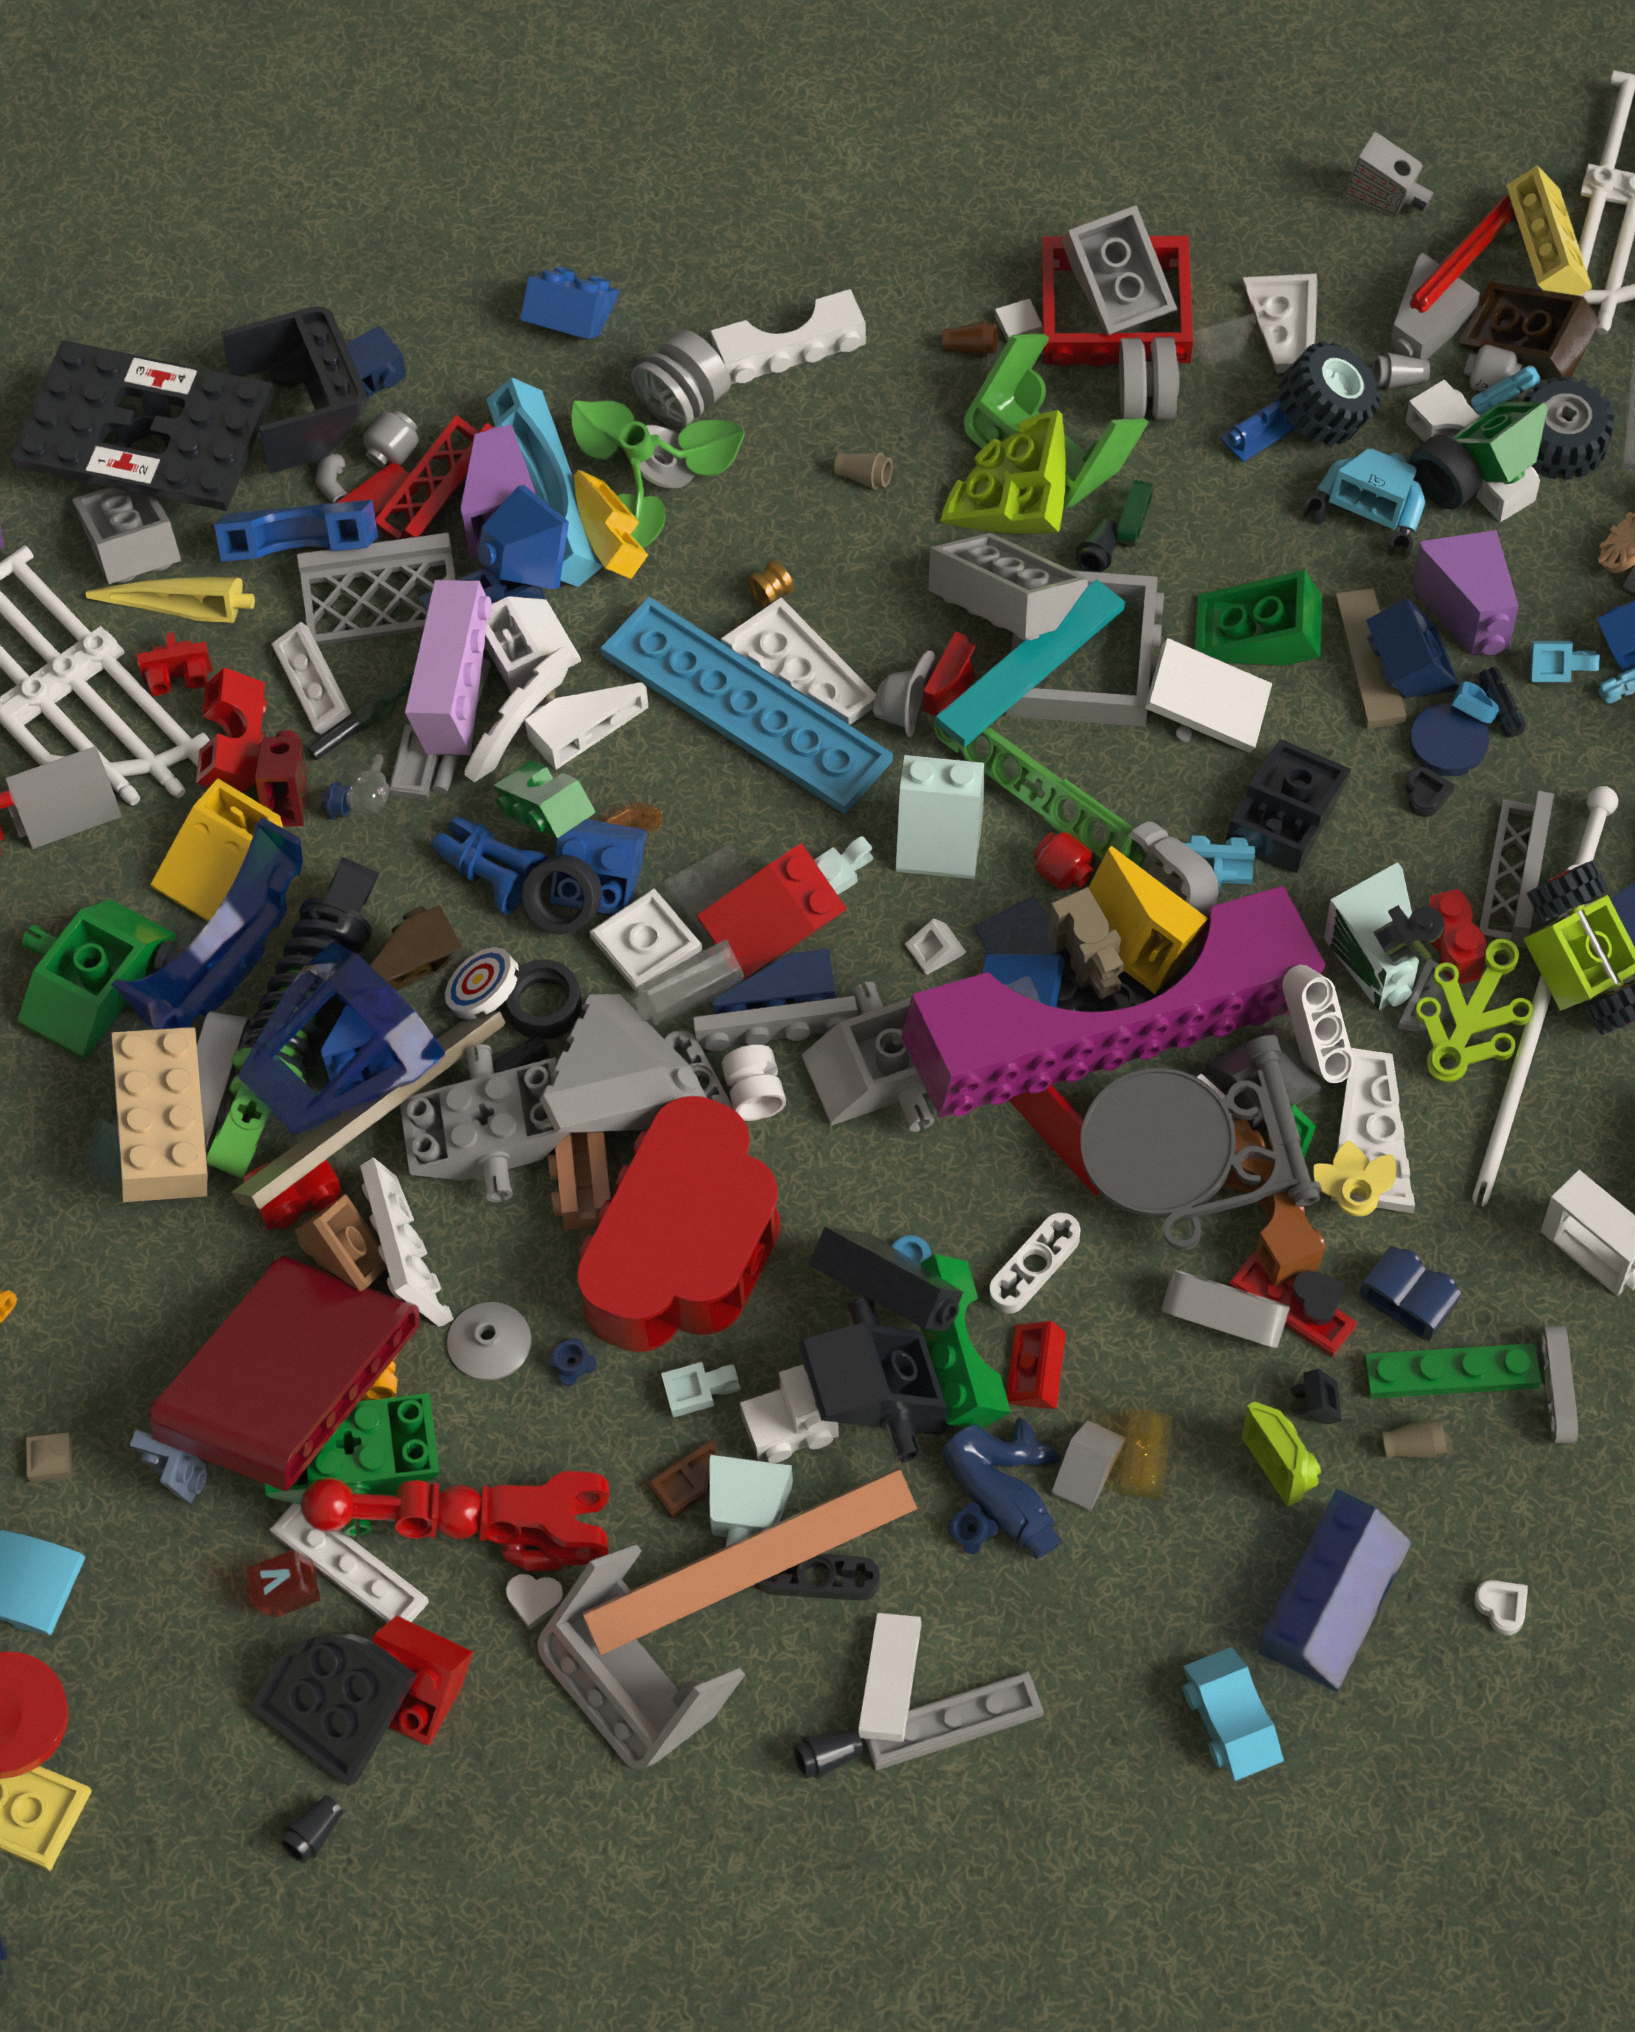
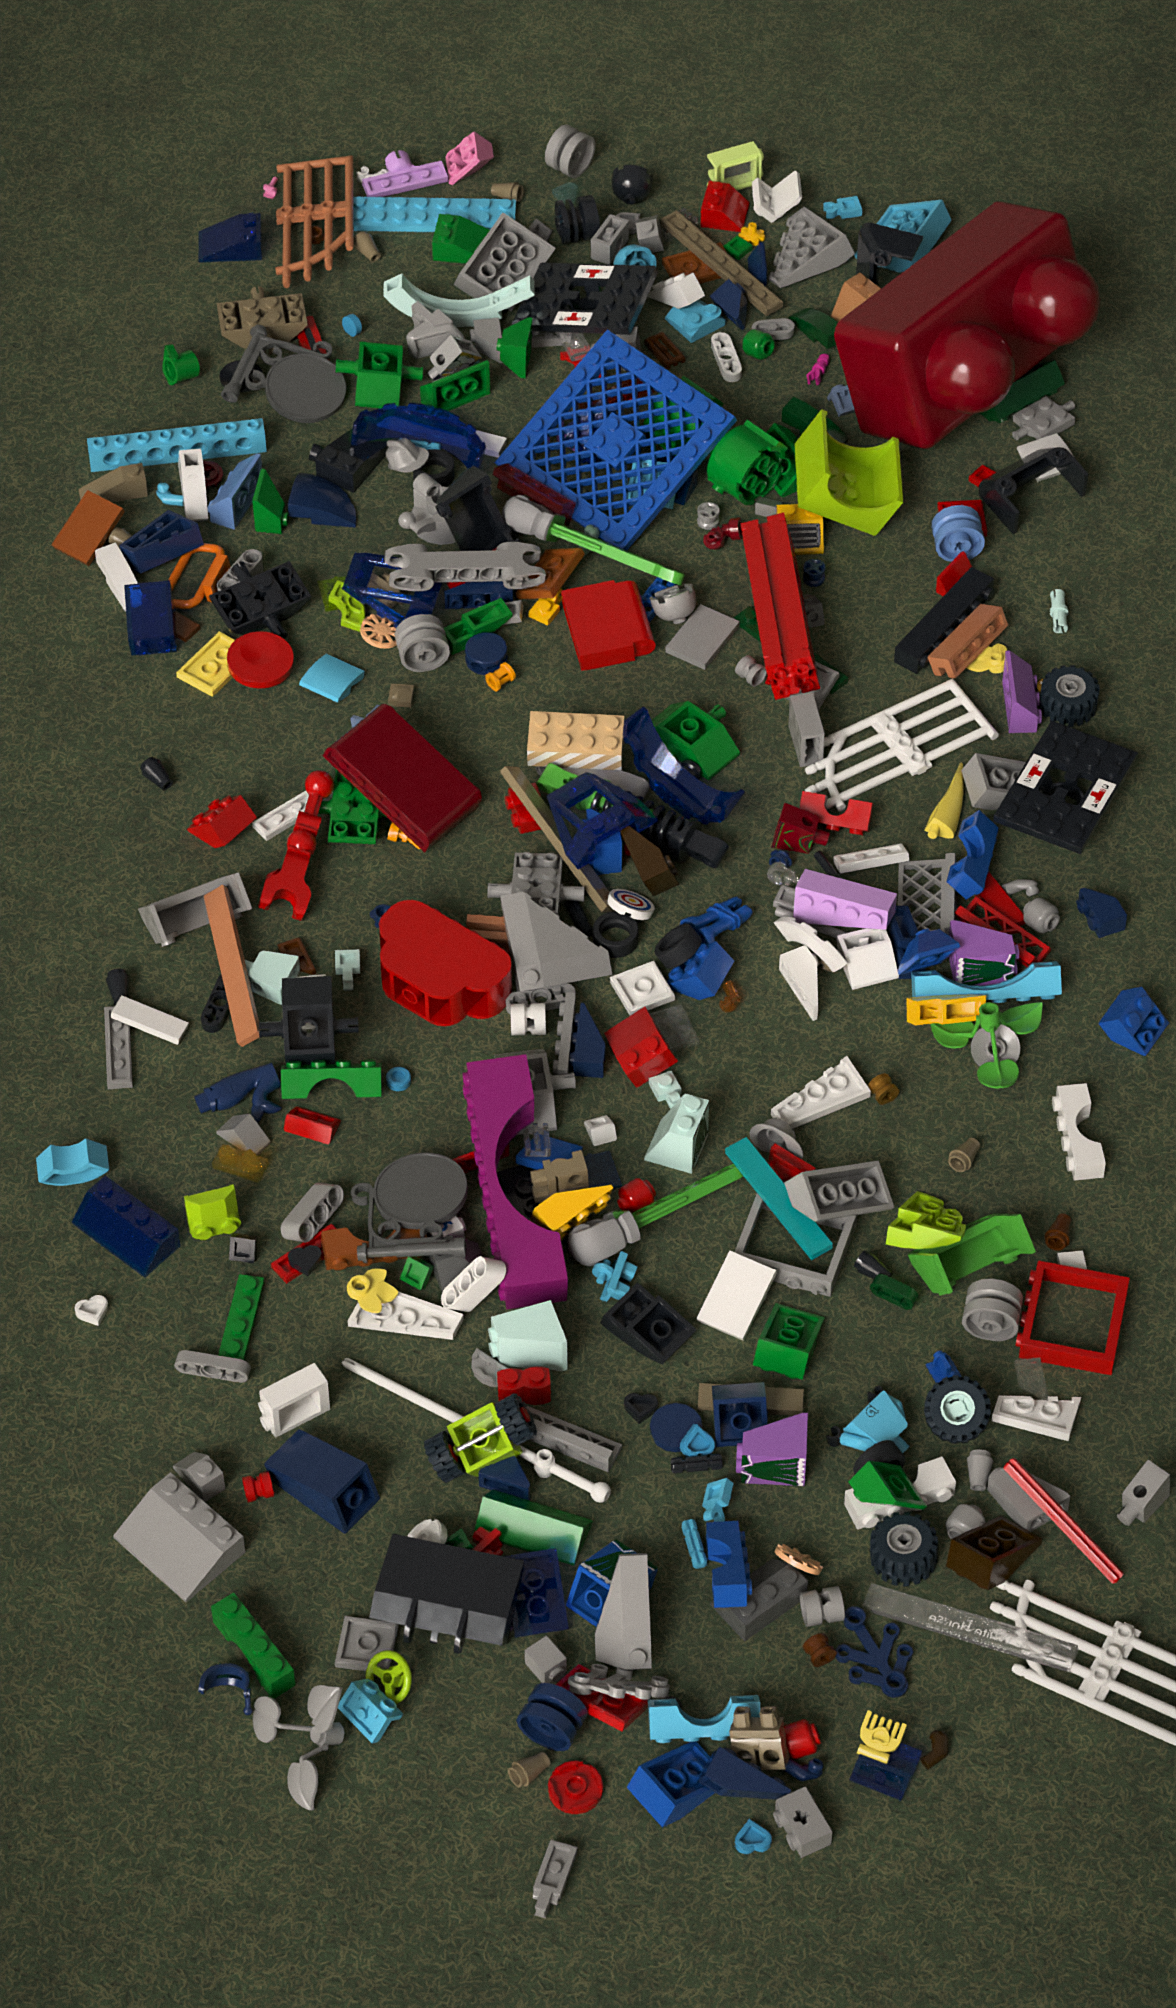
camera: 100 degrees right, 10 degrees down
(175, 661) = (893, 787): red hips -> none
(210, 849) = (761, 802): yellow slope -> none
(282, 1584) = (291, 774): clear red brick -> none
(294, 350) = (1082, 876): black windscreen -> none
(334, 1699) = (216, 783): black plate -> none
(342, 1243) = (476, 817): medium nougat slope -> none
(400, 1243) = (465, 845): white wing -> none
(492, 1357) = (418, 889): light grey dish -> none
(534, 1598) = (252, 880): white tile -> none
(543, 801) = (730, 935): arch -> none
(681, 379) = (1048, 1060): light grey wheel -> none
(688, 984) = (599, 998): clear slope -> none
(747, 705) = (796, 1063): dark azure plate -> none
(887, 1277) = (372, 1039): black slope -> none
(964, 1519) = (221, 1070): dark blue plate -> none
(1062, 1248) = (374, 1125): white beam -> none
(1119, 270) = (1081, 1304): light grey slope -> none
(1406, 935) = (500, 1314): black hips -> none
(1410, 1292) = (294, 1306): dark blue brick -> none
(1417, 1440) = (202, 1290): dark tan cone -> none
(1470, 1018) = (442, 1363): lime plant -> none
(1505, 389) = (941, 1519): medium azure axle -> none
(1548, 234) = (1029, 1561): light yellow brick -> none

